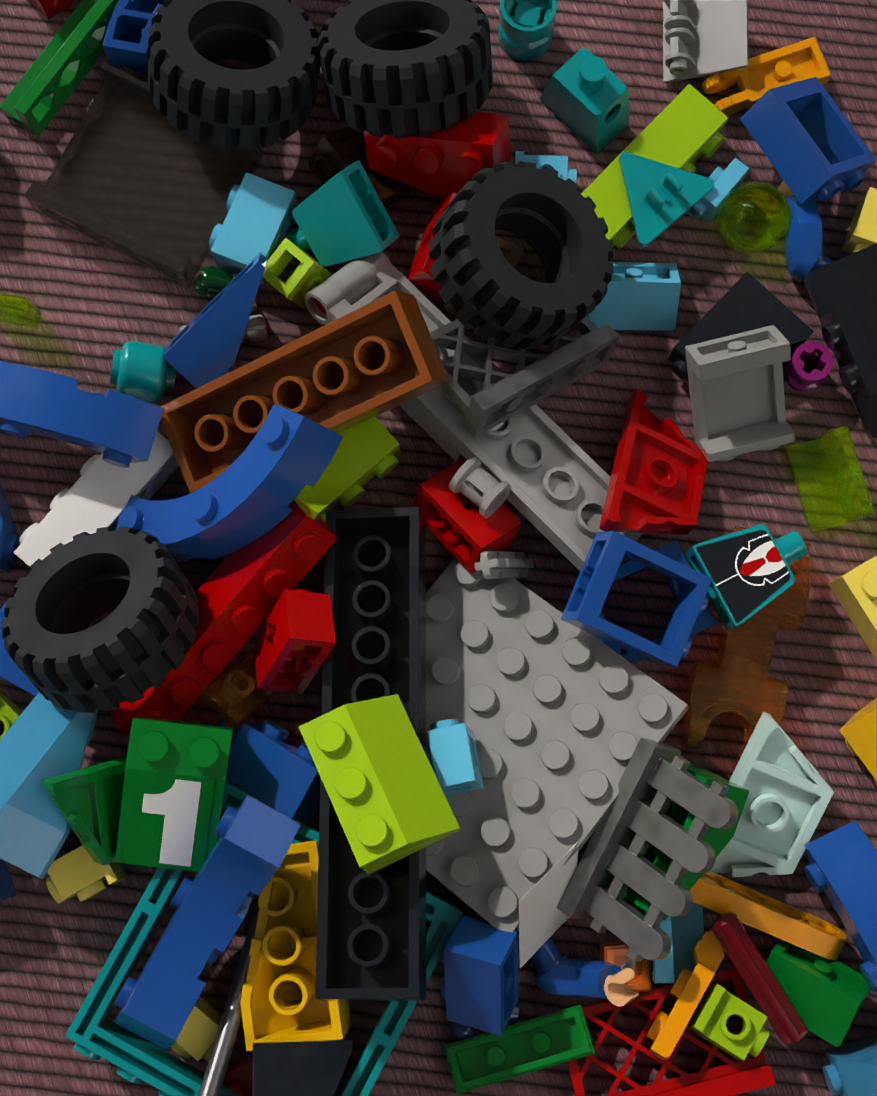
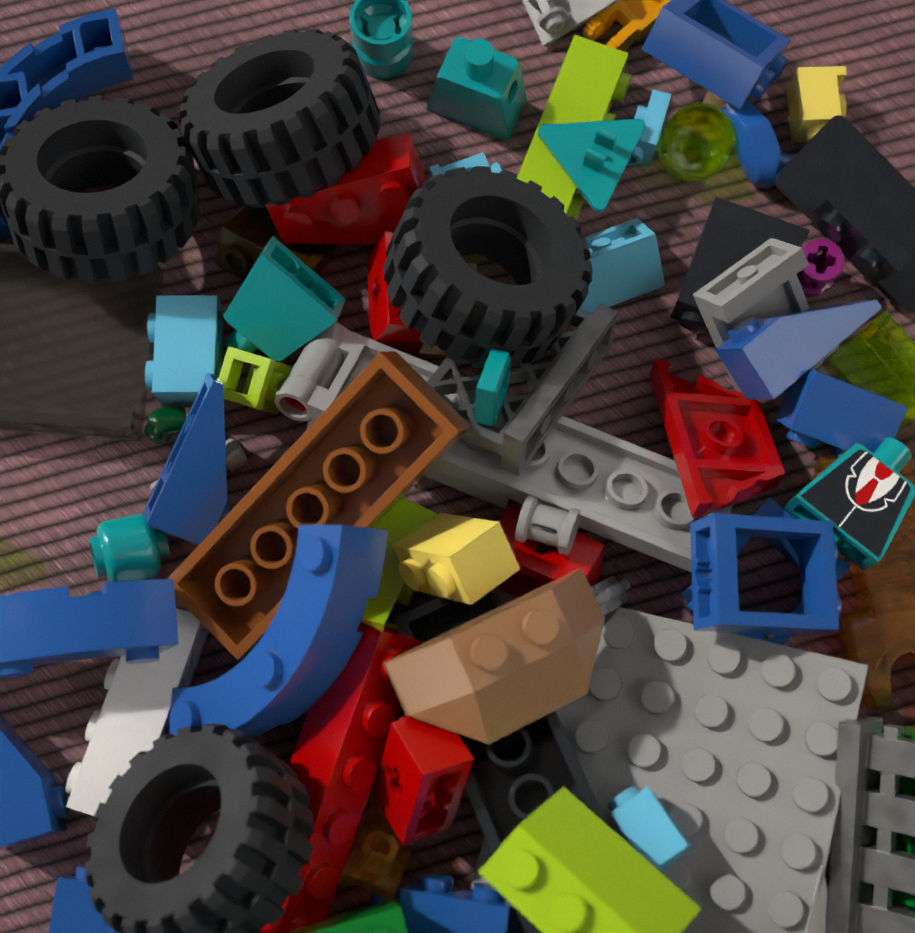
camera: 25 degrees left, 5 degrees down
(394, 482) = (456, 557): none -> light yellow brick
(395, 580) = (504, 663): none -> medium nougat wedge
(480, 356) = (492, 387): none -> teal tile
(737, 420) = (778, 349): none -> slope
(766, 493) = (837, 413): none -> blue brick

